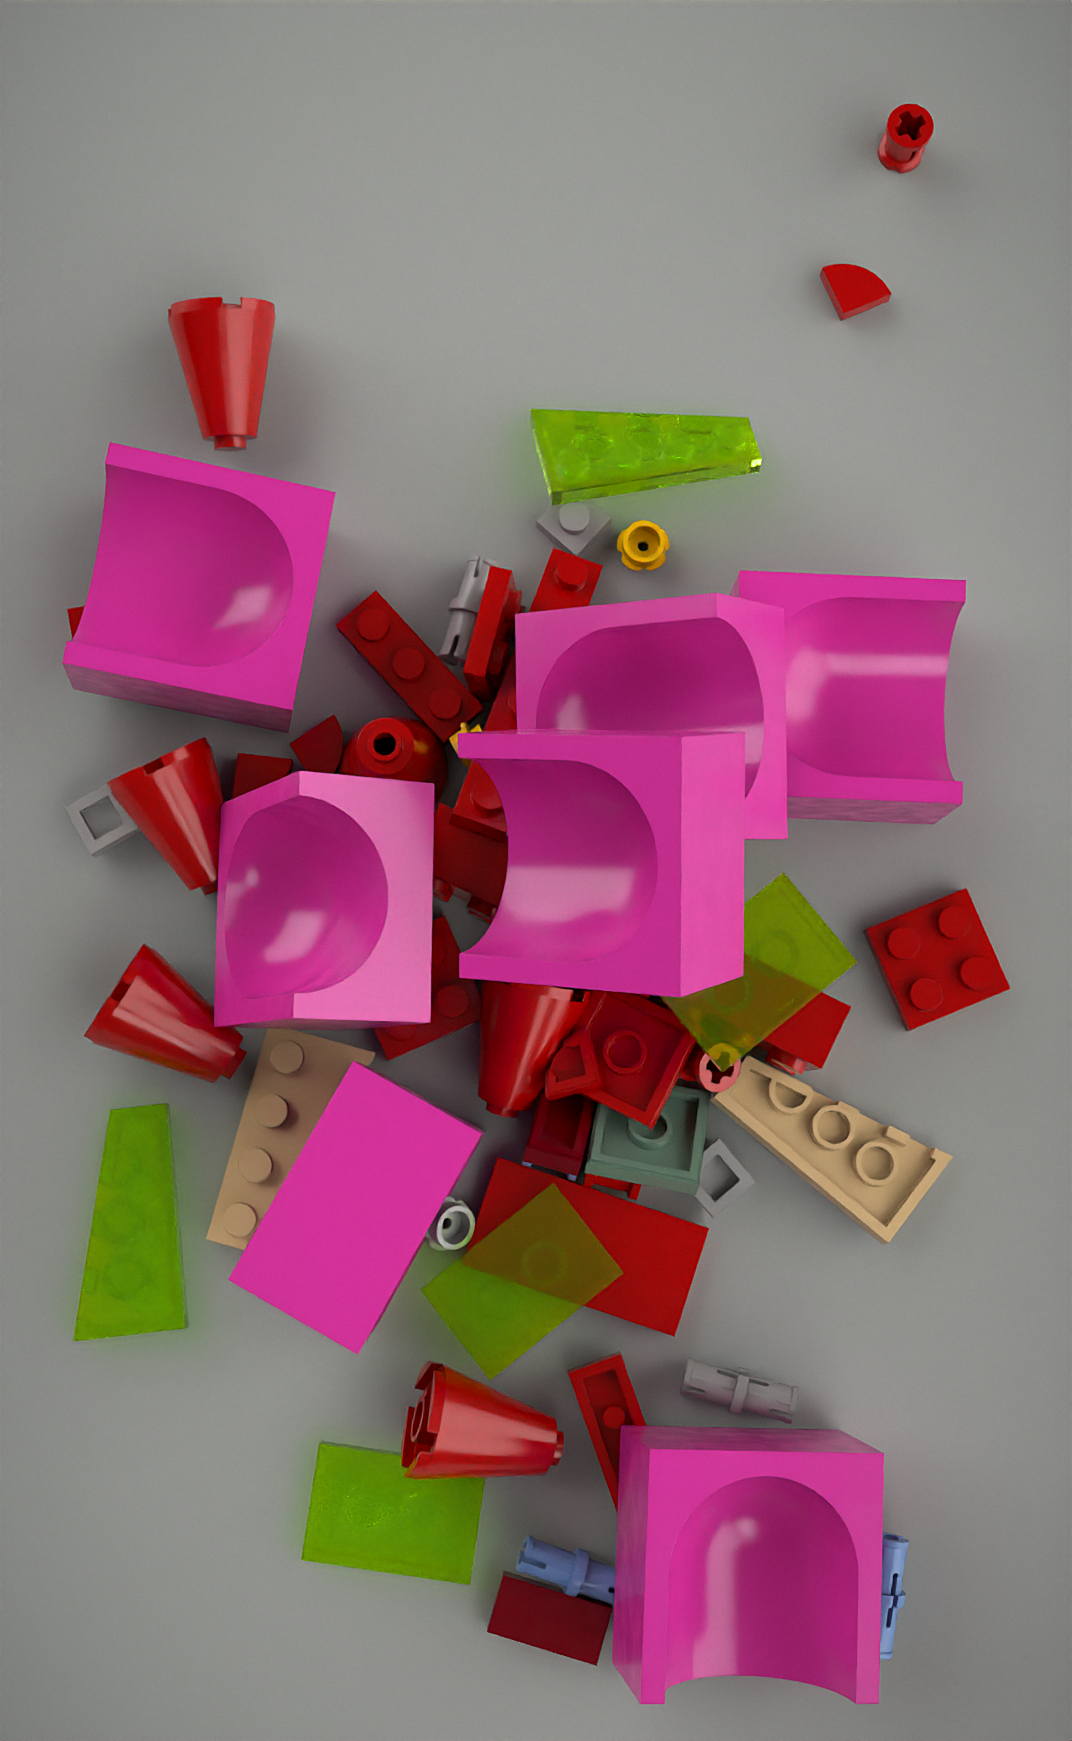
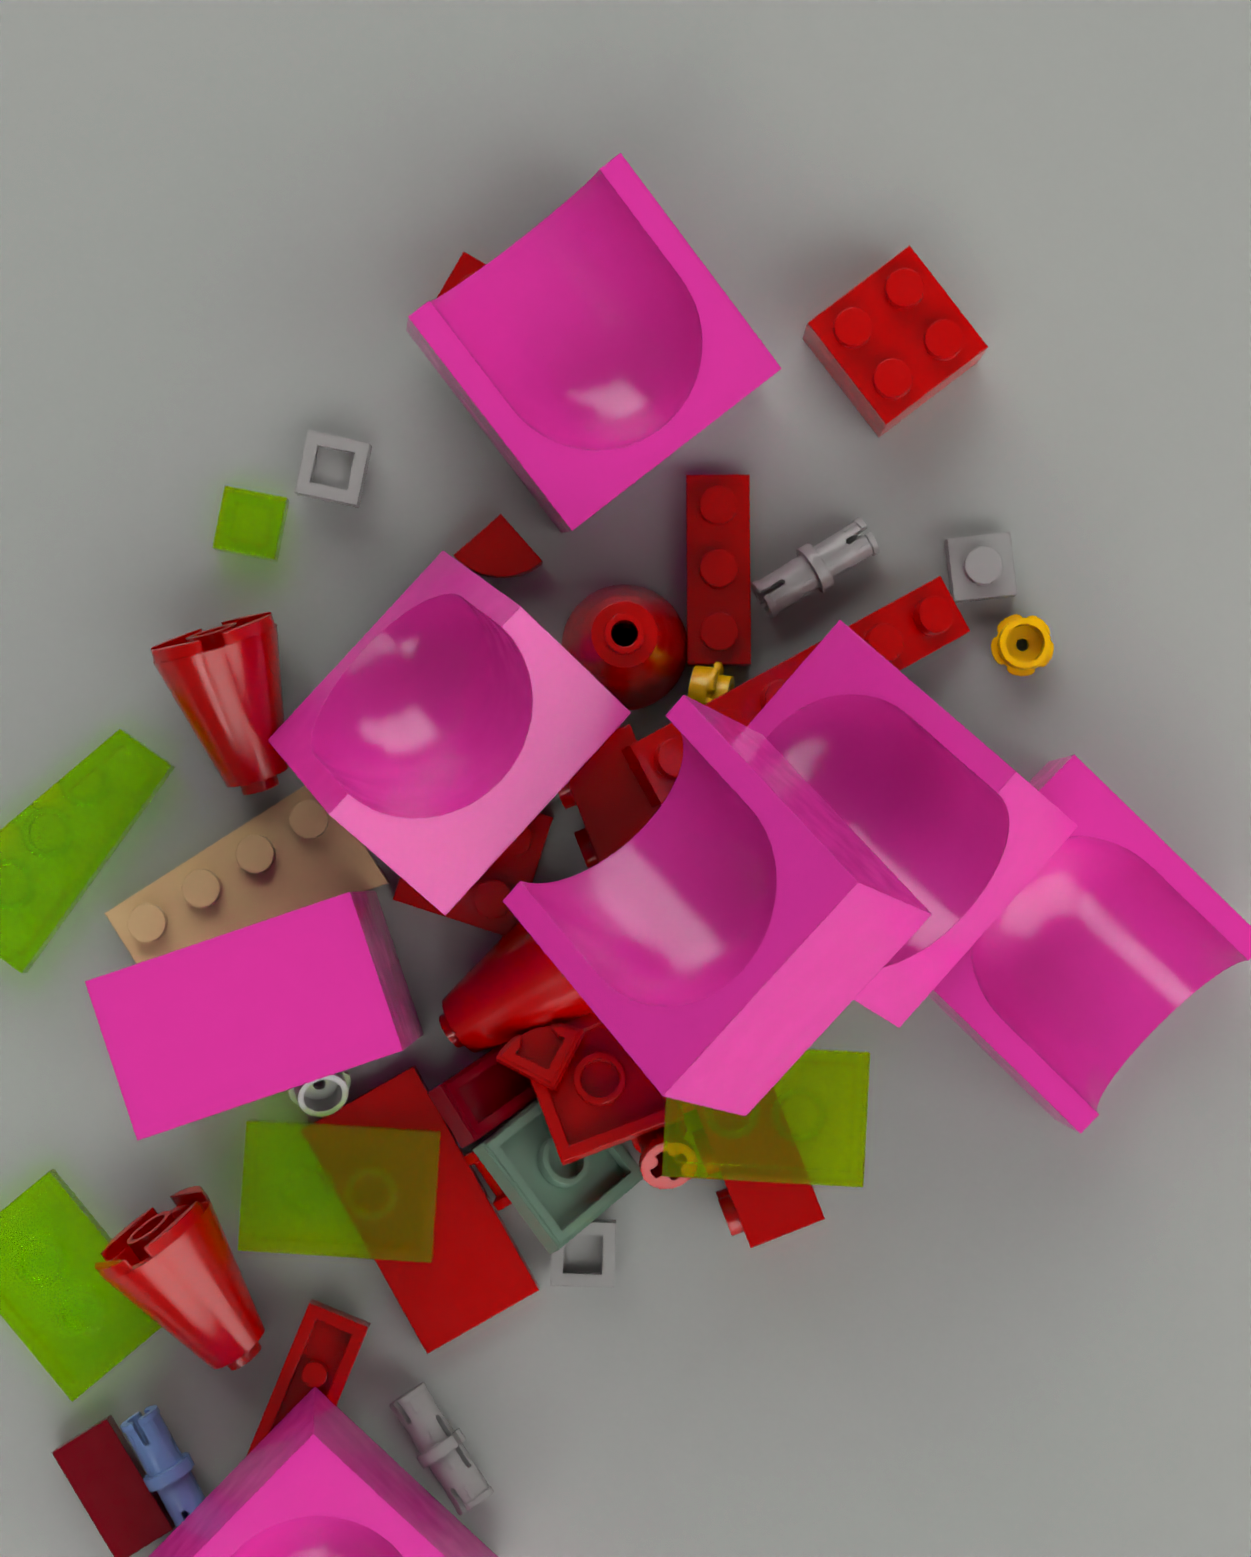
camera: 45 degrees right, 5 degrees up
(80, 902) = (251, 524): none -> clear neon green tile
(178, 810) = (403, 520): red cone -> none
(224, 364) = (793, 154): red cone -> none
(321, 747) = (574, 576): red tile -> none
(392, 427) = (894, 341): none -> red brick
(494, 625) = (831, 599): red plate -> none
(625, 452) = (1087, 550): clear neon green wing -> none
(850, 1159) = (713, 1340): tan wing -> none
(936, 959) = (947, 1239): red plate -> none

